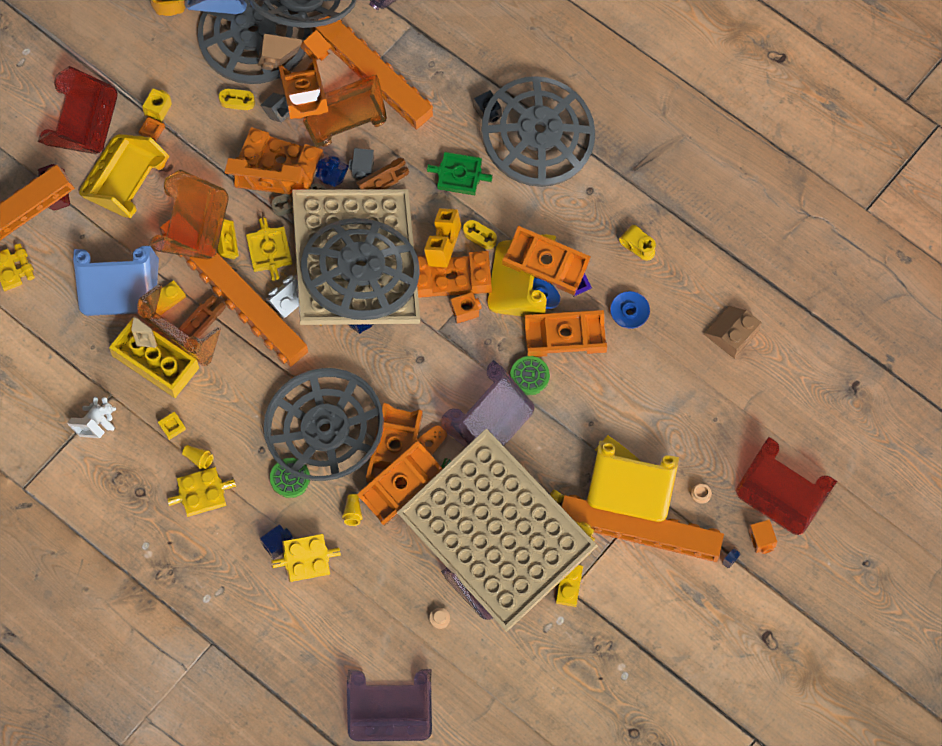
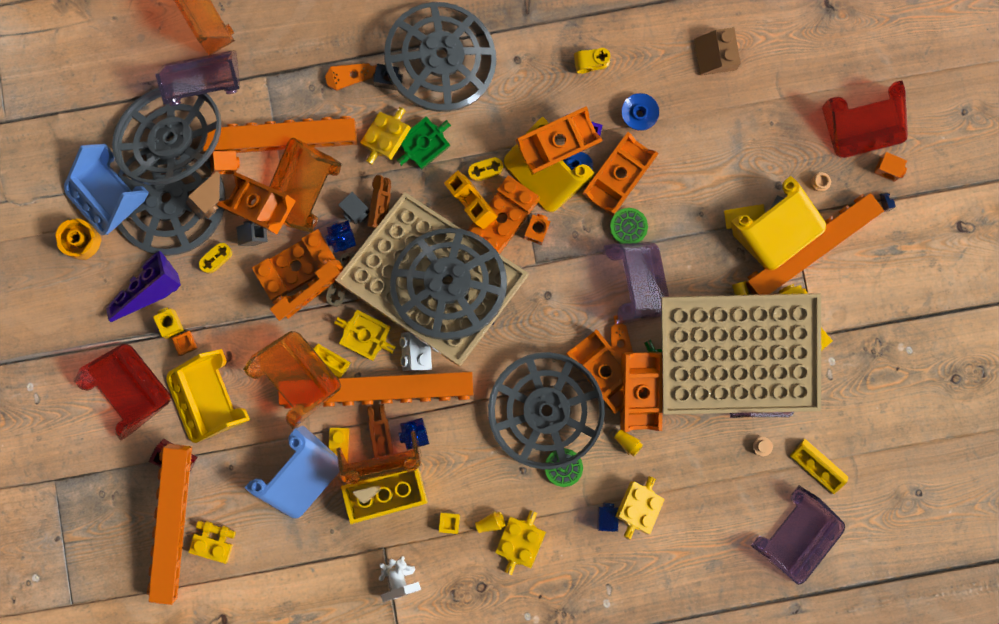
camera: 50 degrees left, 15 degrees up
(178, 72) = (151, 285): none -> dark purple wedge
(226, 344) = (420, 430): none -> clear blue brick
(440, 141) = (385, 135): none -> yellow plate
(460, 77) = (344, 75): none -> orange piece
(462, 677) = (819, 466): none -> yellow slope

